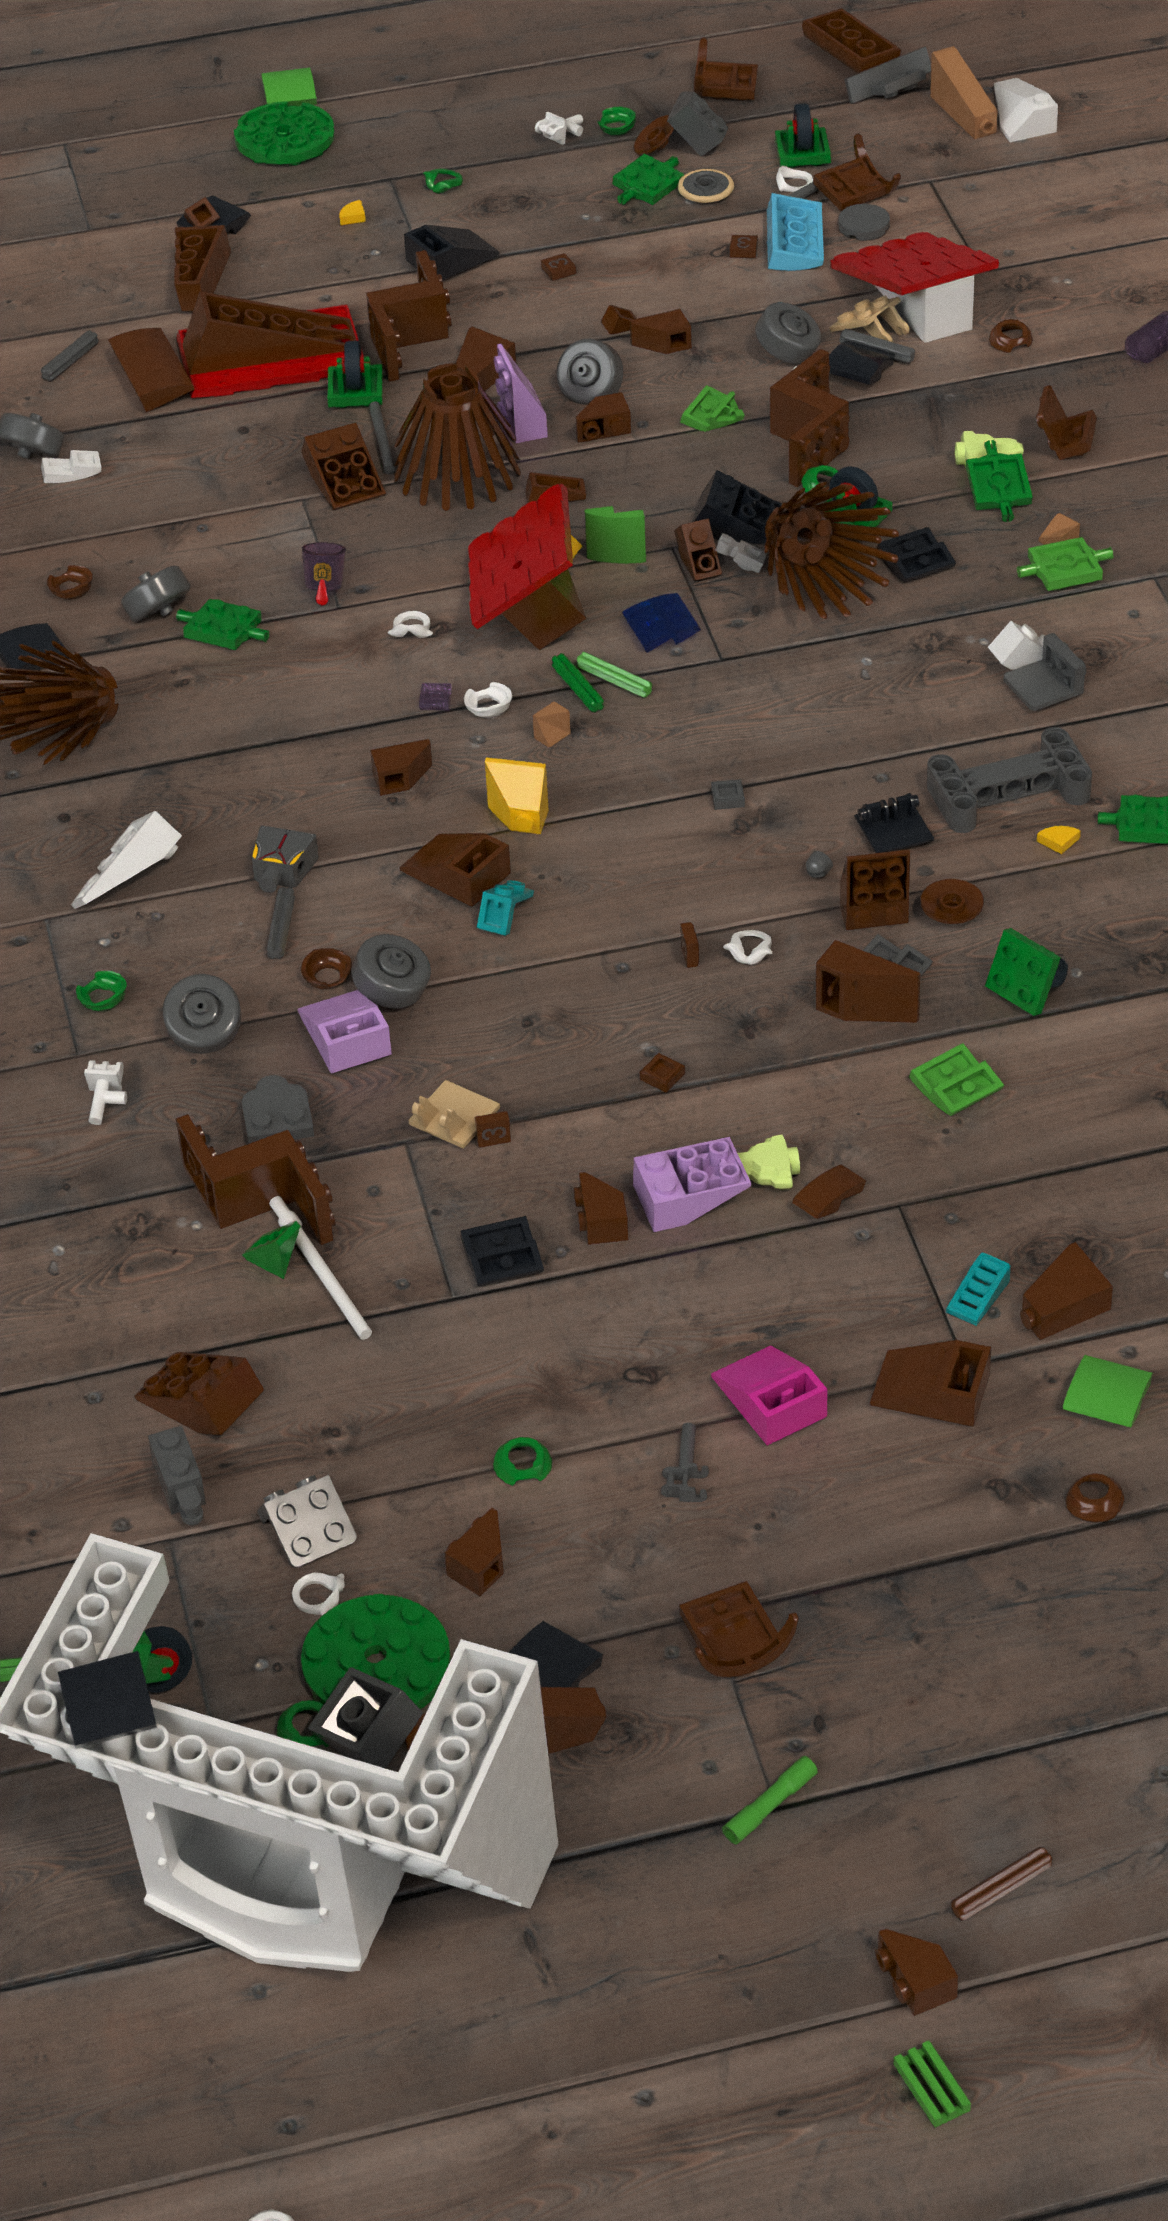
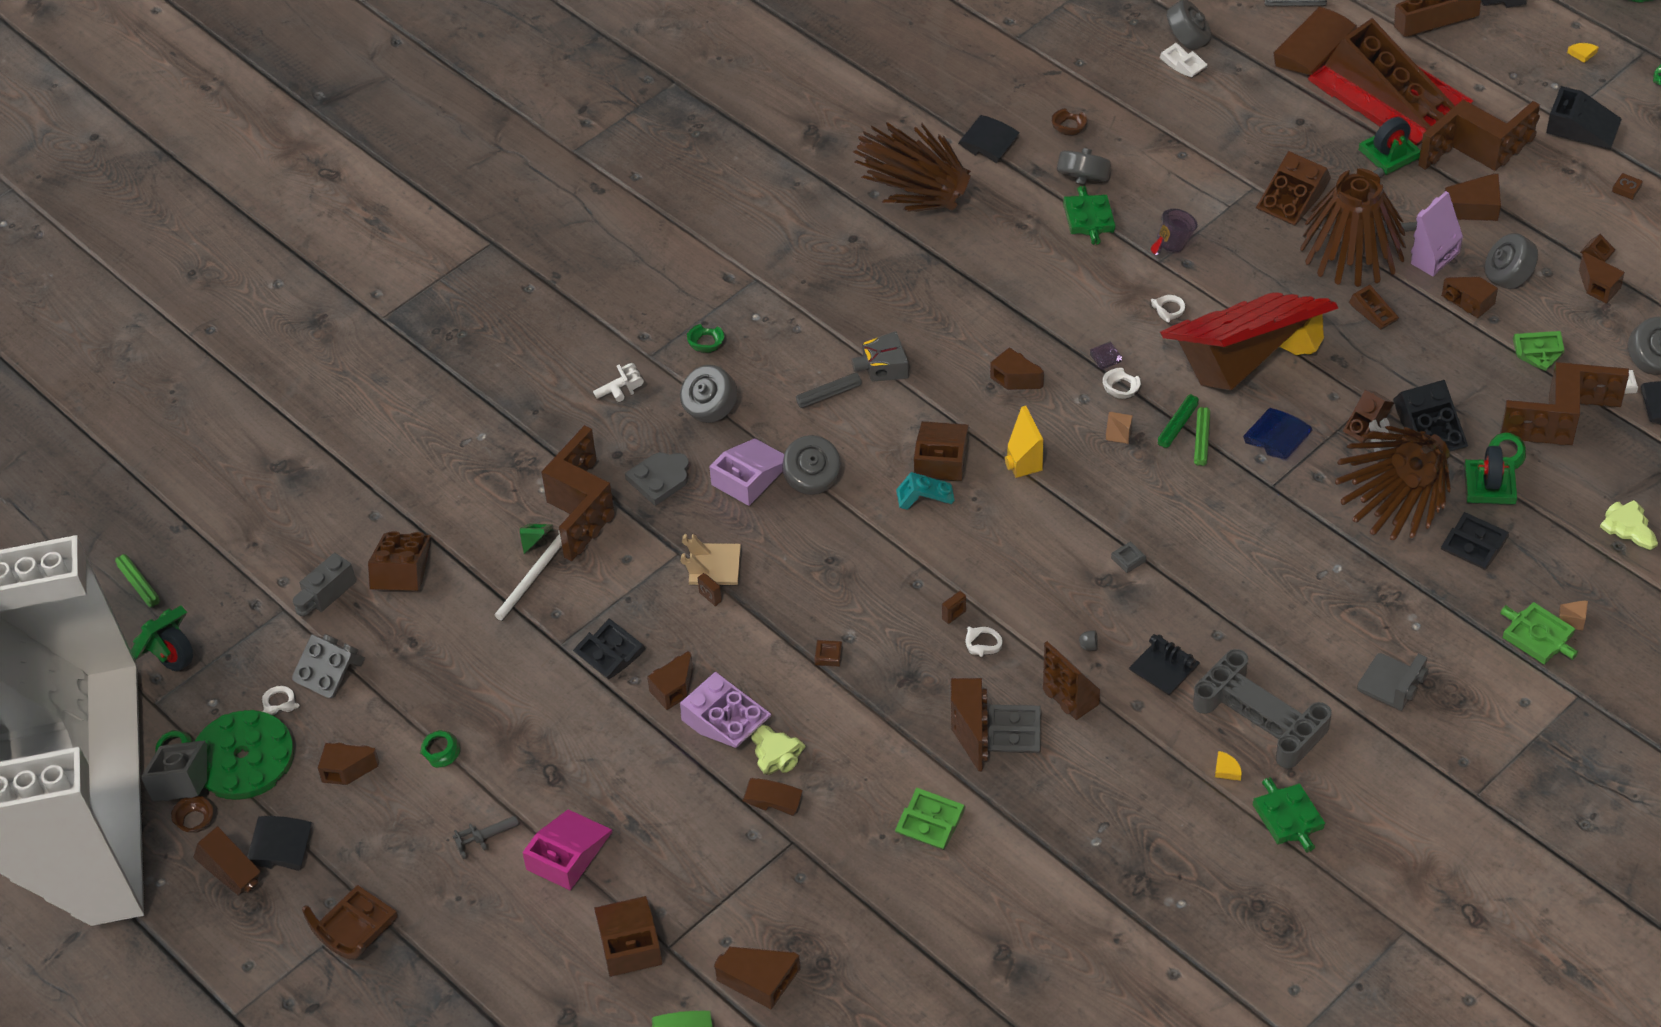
camera: 60 degrees right, 5 degrees up
(136, 849) = (836, 288): white wedge -> none
(323, 959) = (799, 425): reddish brown piece -> none
(615, 536) = (1335, 363): bright green slope -> none
(752, 1815) = (247, 1012): bright green piece -> none
(952, 901) = (1104, 725): reddish brown dish -> none
(987, 1270) = (747, 913): teal slope -> none
(998, 481) = (1597, 549): green plate -> none
(1017, 646) = (1409, 641): white slope -> none
(1025, 971) = (1063, 809): green plate -> none

